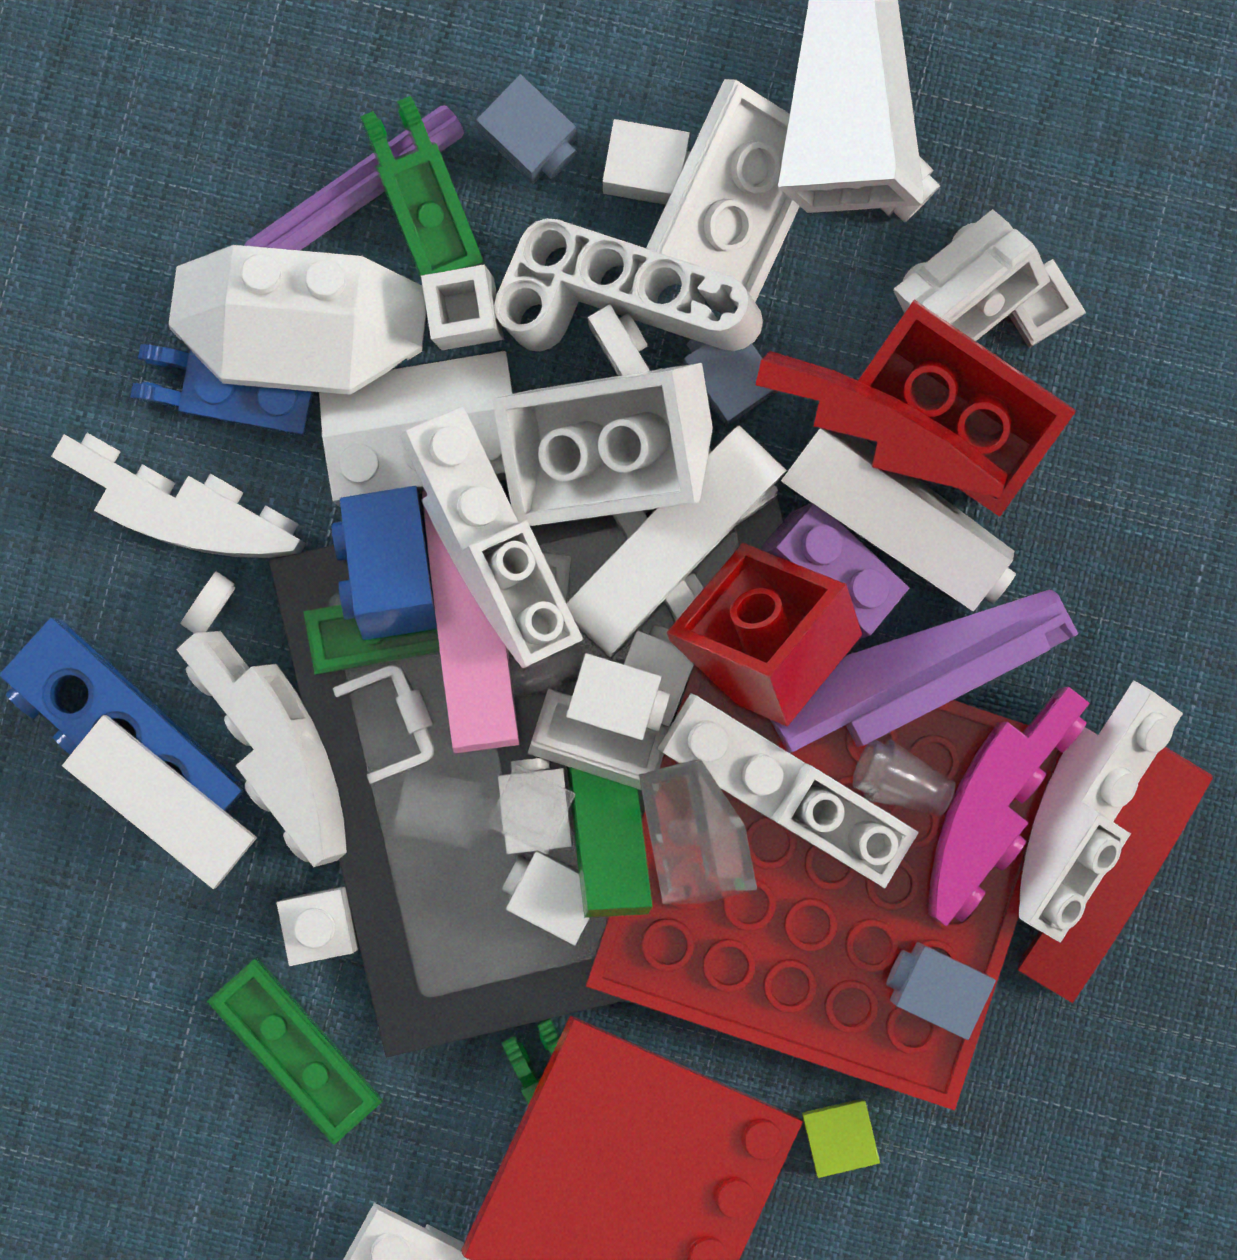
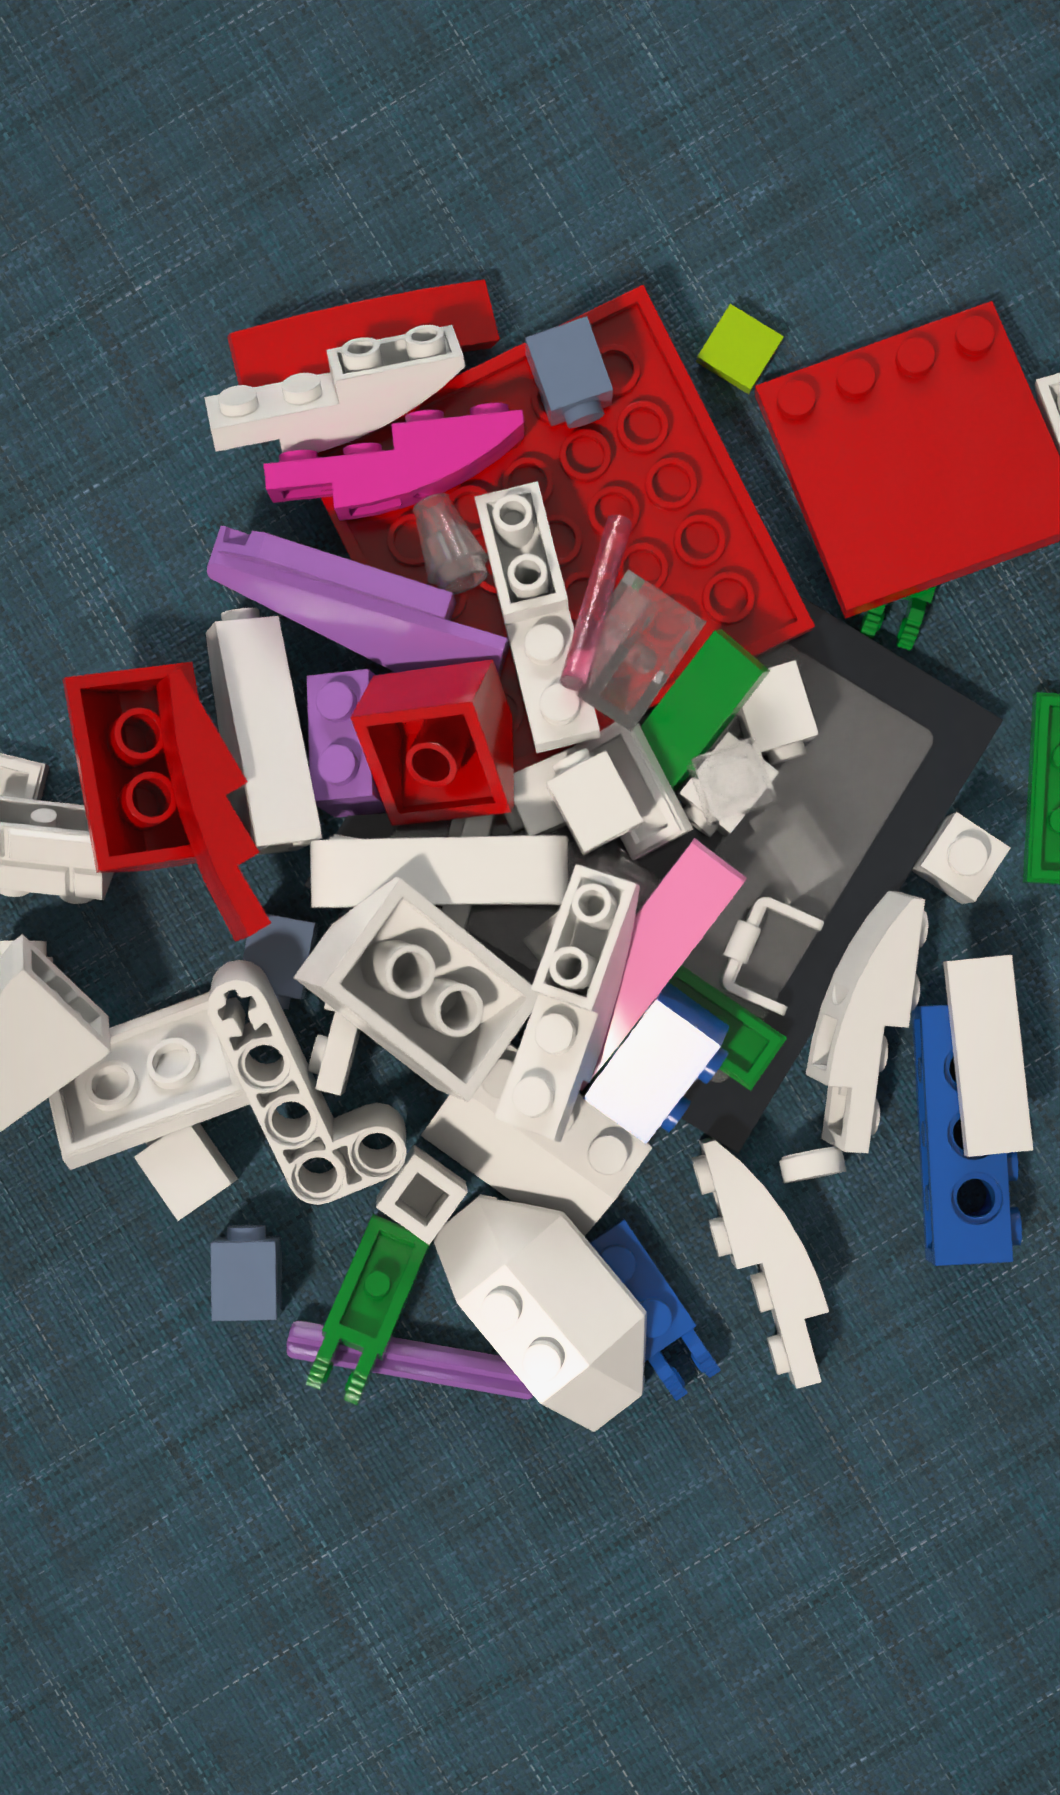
camera: 135 degrees left, 0 degrees up
(756, 841) = (595, 603): none -> clear pink bar

